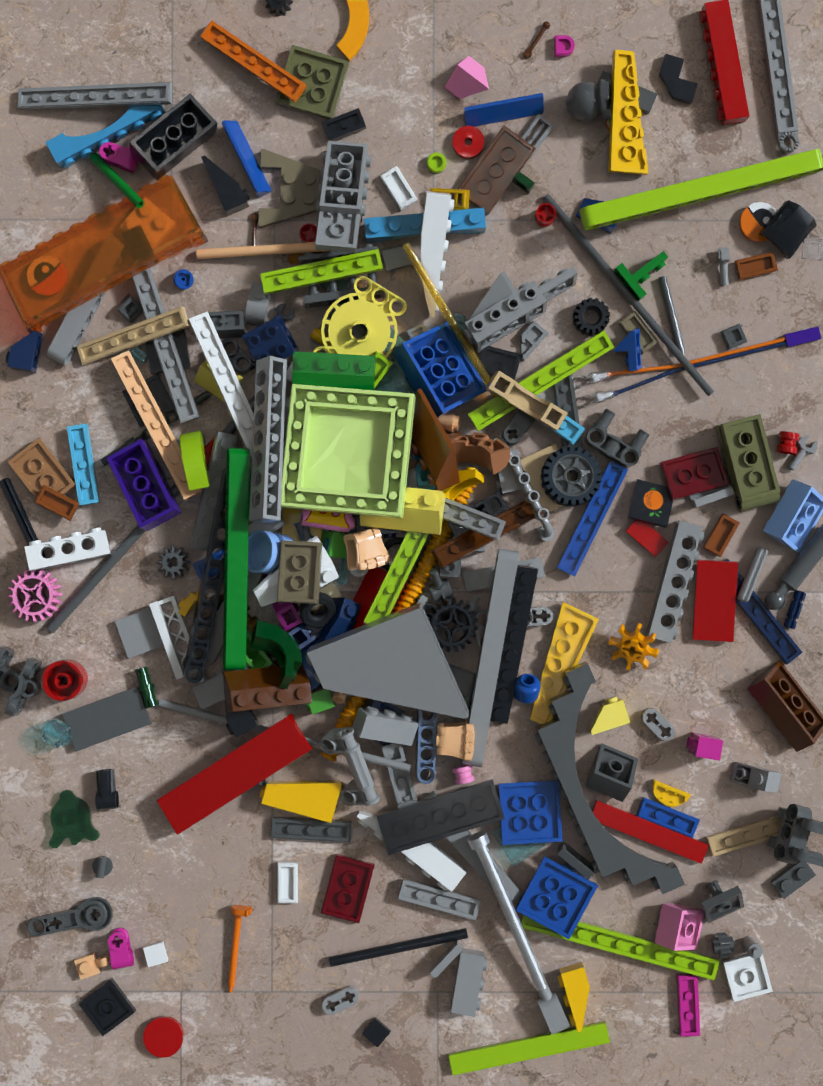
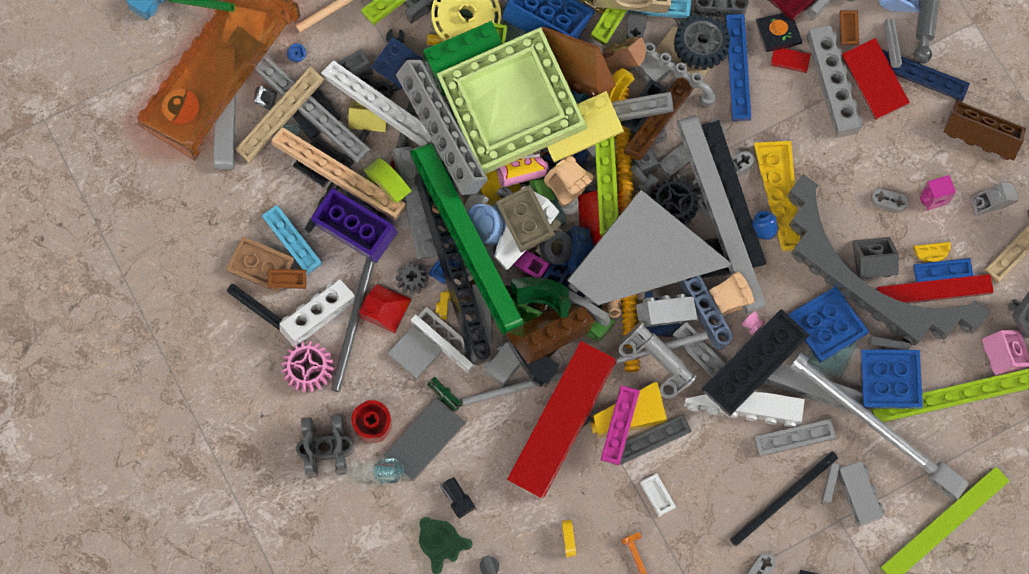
camera: 30 degrees left, 15 degrees down
(25, 353) = (194, 176): dark blue slope -> none
(135, 576) = (384, 308): none -> red slope
(185, 879) = (568, 536): none -> yellow beam
(257, 305) = (370, 40): light grey brick -> none
(284, 807) = (619, 425): none -> dark pink tile
(316, 687) = (596, 313): none -> light grey tile
(347, 888) = (711, 472): dark red tile -> none
(577, 987) = (955, 451): yellow slope -> none
(609, 716) = (846, 211): light yellow slope -> none
(633, 646) = (840, 144): light orange gear -> none
(795, 609) = (943, 54): dark blue axle -> none

